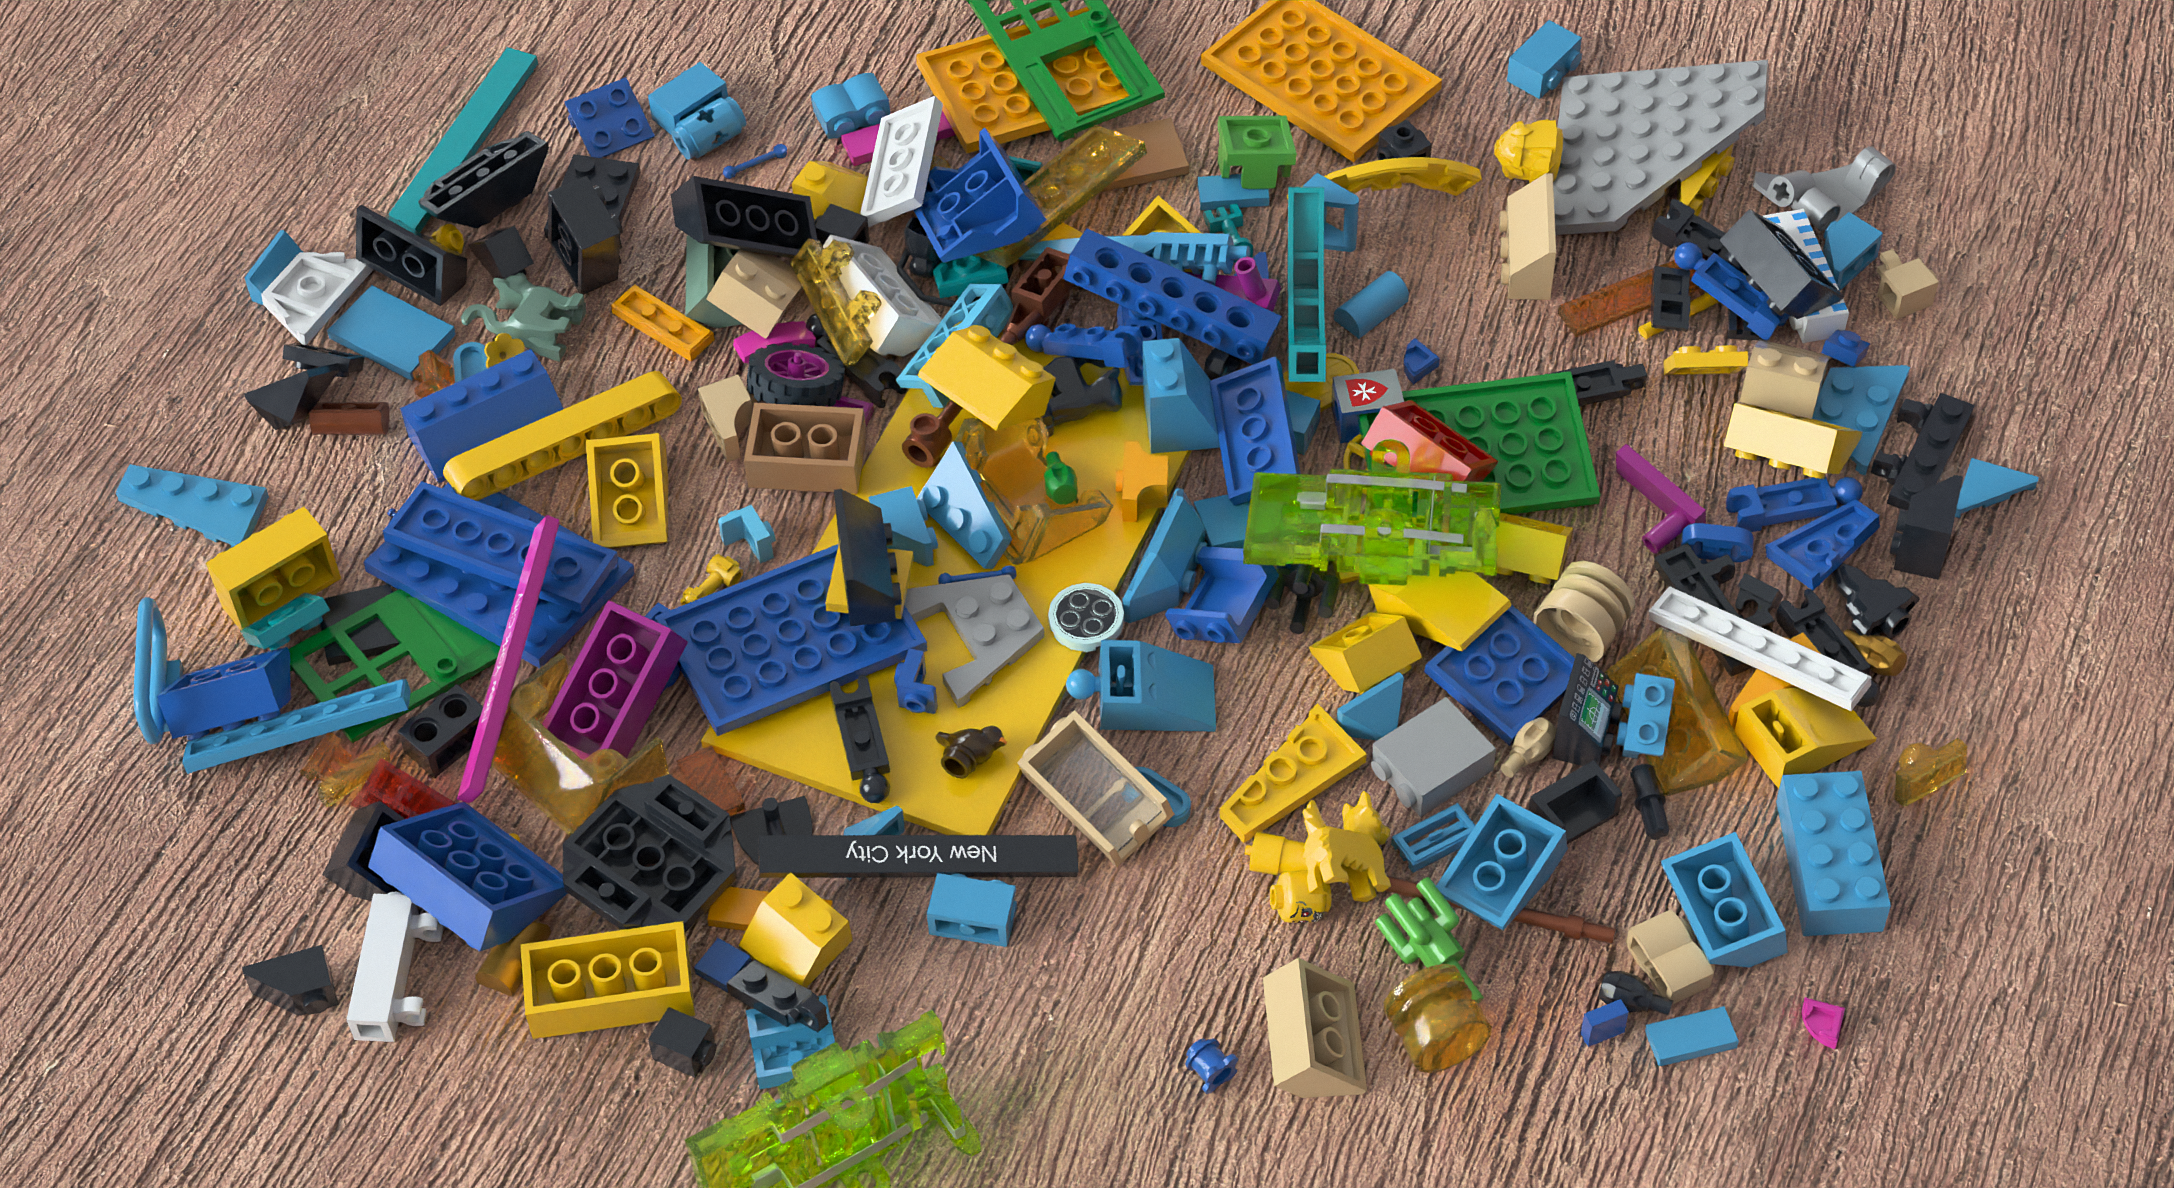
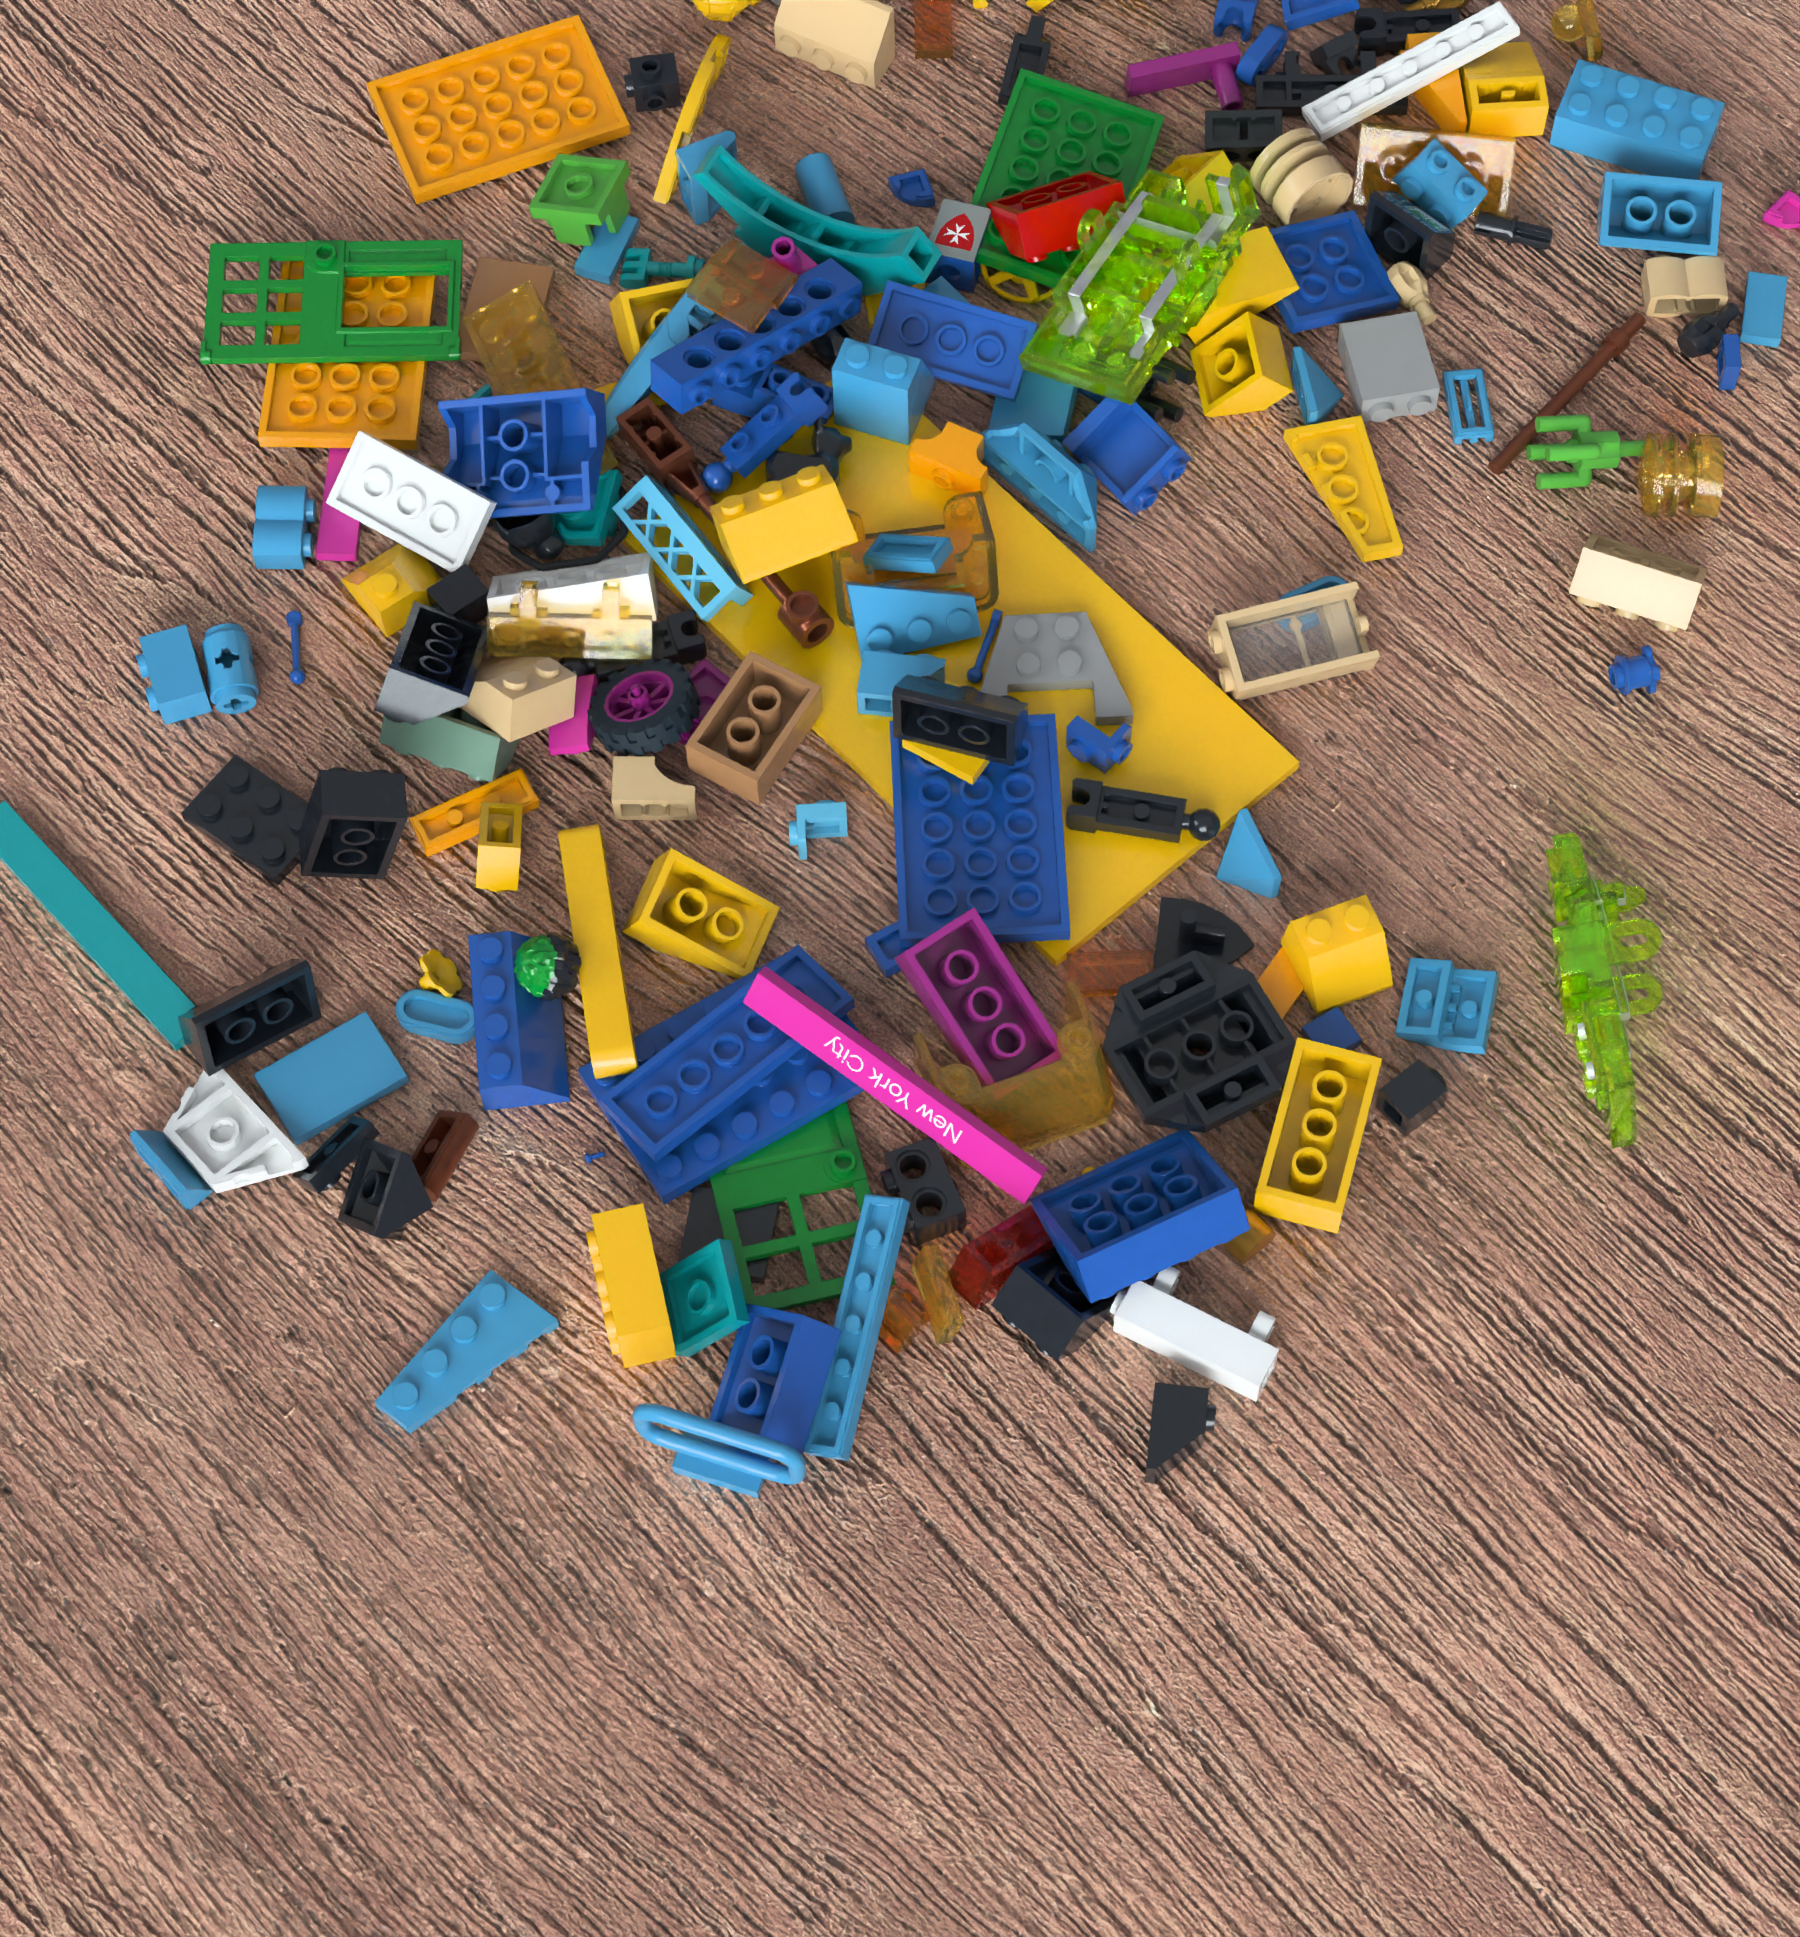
camera: 65 degrees left, 10 degrees up
(433, 374) = (429, 1048): clear orange tile -> none
(450, 237) = (233, 973): yellow plate -> none
(487, 182) = (177, 905): black wedge -> none
(502, 252) = (287, 928): black slope -> none
(520, 402) = (548, 966): none -> piece
(537, 318) = (401, 925): sand green animal -> none
(609, 119) = (151, 761): blue hinge -> none
(629, 341) = (499, 846): none -> yellow slope
(722, 571) = (852, 867): yellow bar -> none
(777, 996) = (1400, 995): black hinge -> none
(917, 856) = (1304, 818): black tile -> none
(968, 749) = (1199, 728): dark brown animal -> none
(972, 909) = (1376, 797): dark azure brick -> none
(1024, 480) = (908, 553): none -> dark azure tile
(1060, 480) = (913, 522): green piece -> none
(1085, 616) = (1086, 573): tile -> none
(1151, 689) = (1196, 560): dark azure slope -> none
(1197, 257) = (741, 285): none -> clear orange slope
(1275, 854) = (1439, 526): yellow piece -> none
(1295, 902) = (1490, 527): yellow head -> none
(1348, 853) = (1469, 469): yellow animal -> none
(1503, 862) = (1536, 359): dark azure slope -> none
(1578, 801) = (1491, 285): black panel -> none
(1607, 547) = (1242, 132): none -> black brick

